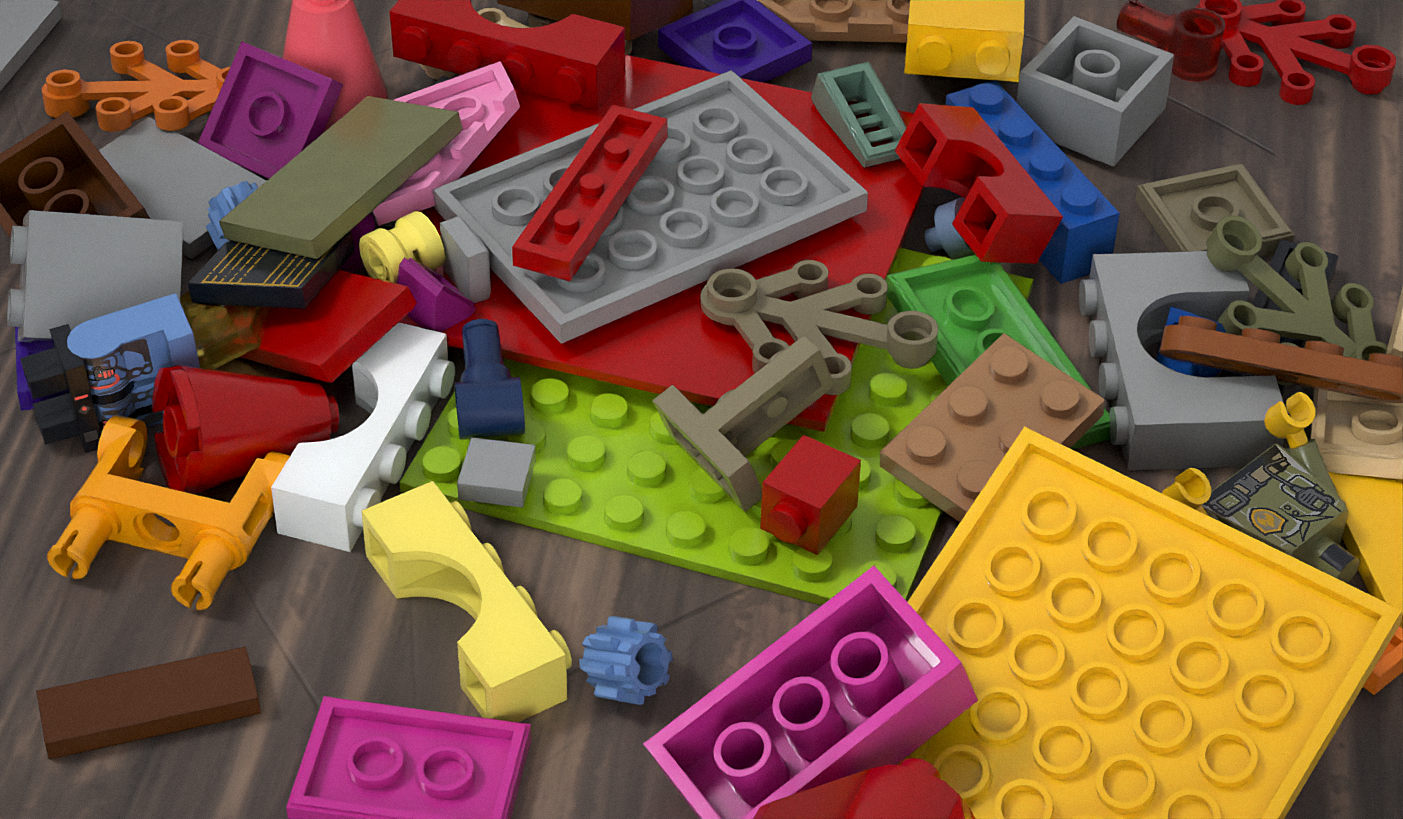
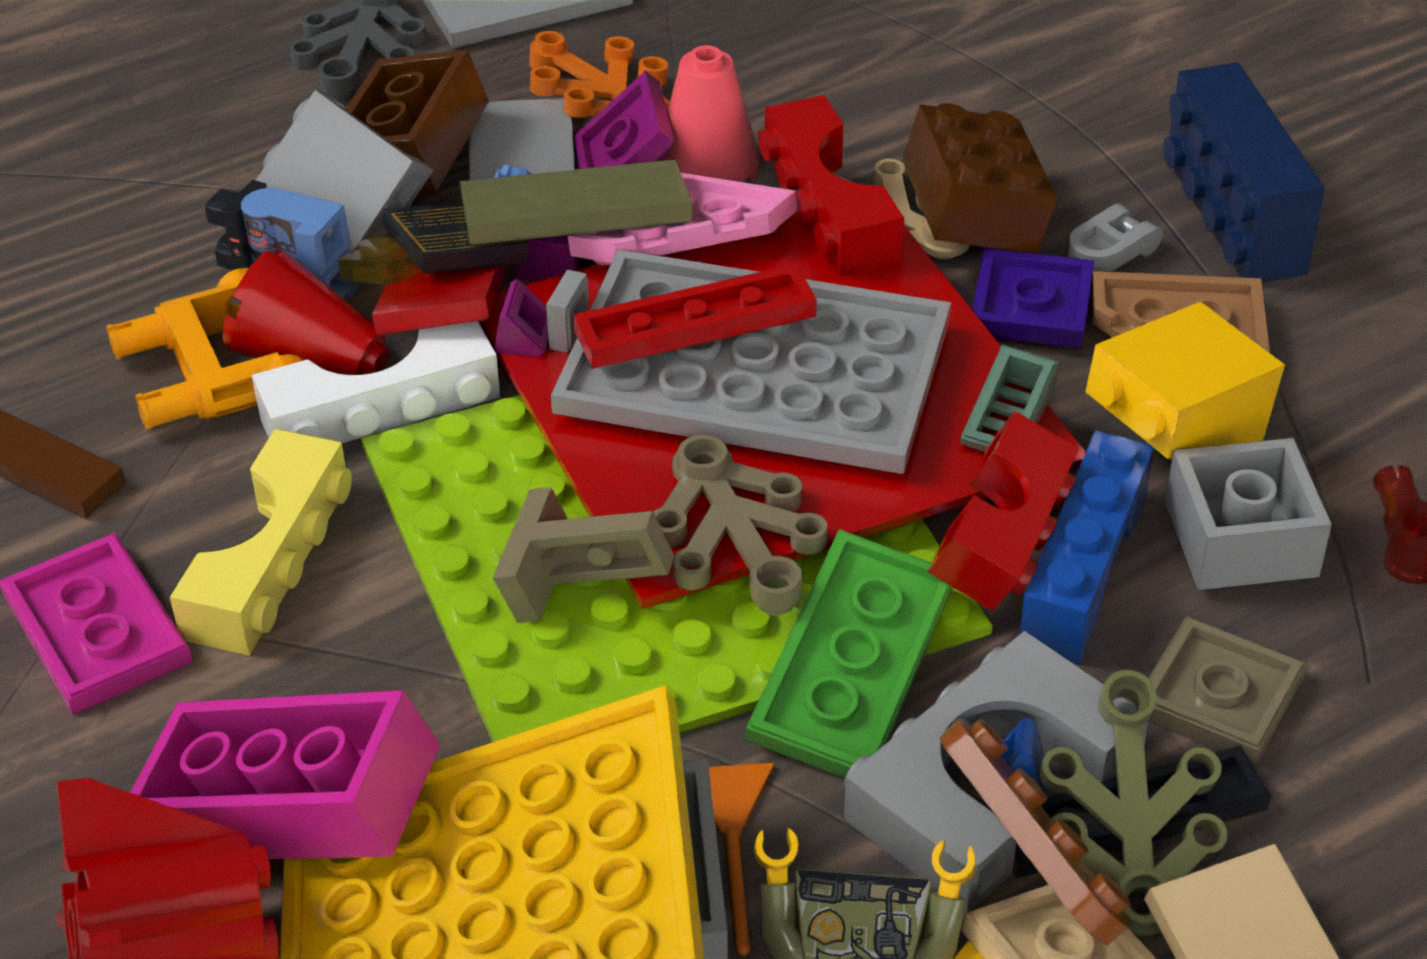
camera: 50 degrees right, 0 degrees up
(411, 238) = (538, 272): light yellow wheel -> none
(488, 396) = (462, 418): dark blue pin -> none
(496, 472) = (402, 471): light grey tile -> none
(626, 660) = (280, 670): medium blue gear -> none
(810, 494) = (546, 639): red brick -> none
(974, 422) = (754, 696): medium nougat plate -> none

